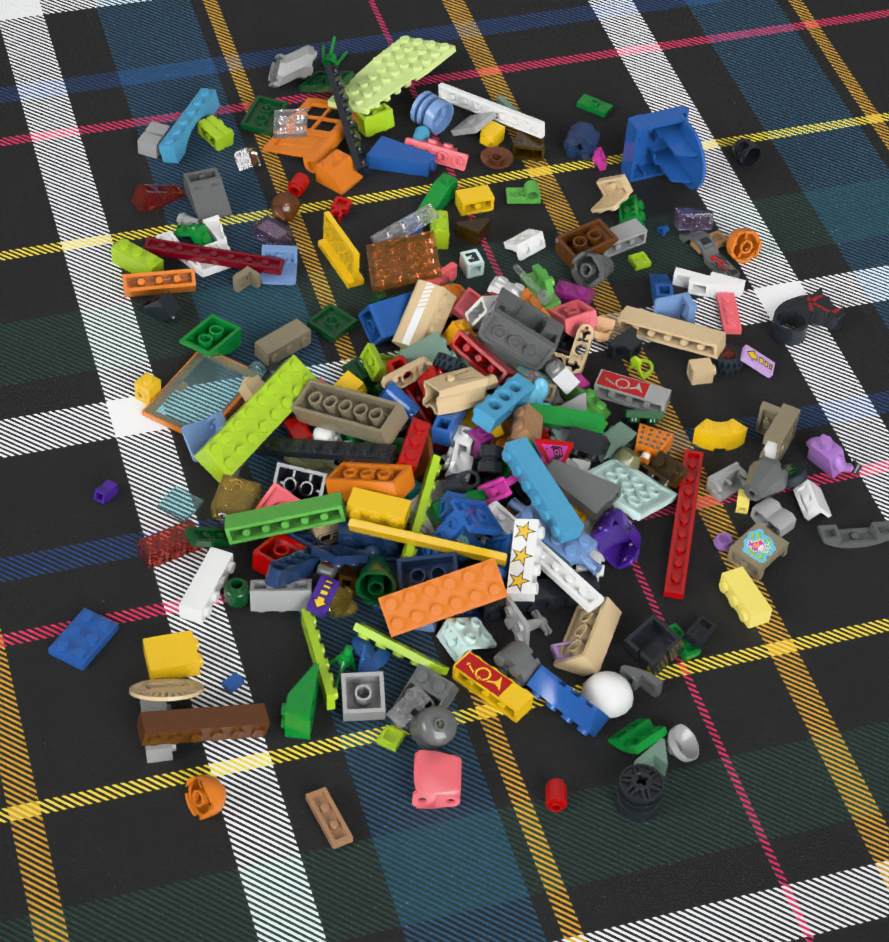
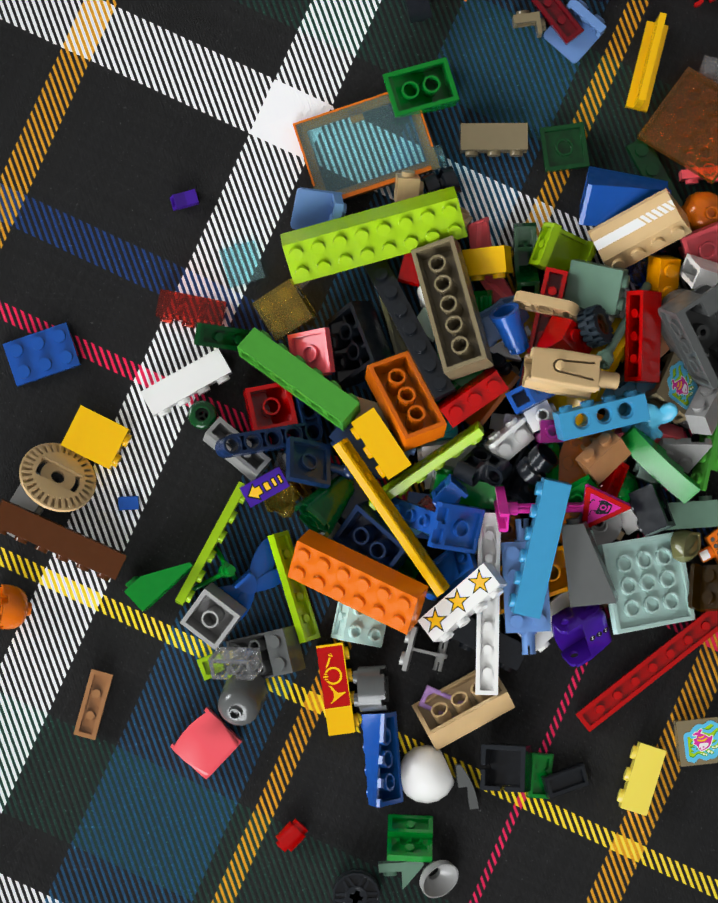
camera: 45 degrees right, 40 degrees up
(147, 387) = (316, 101): yellow brick -> none
(723, 541) = (685, 702): medium lavender plate -> none

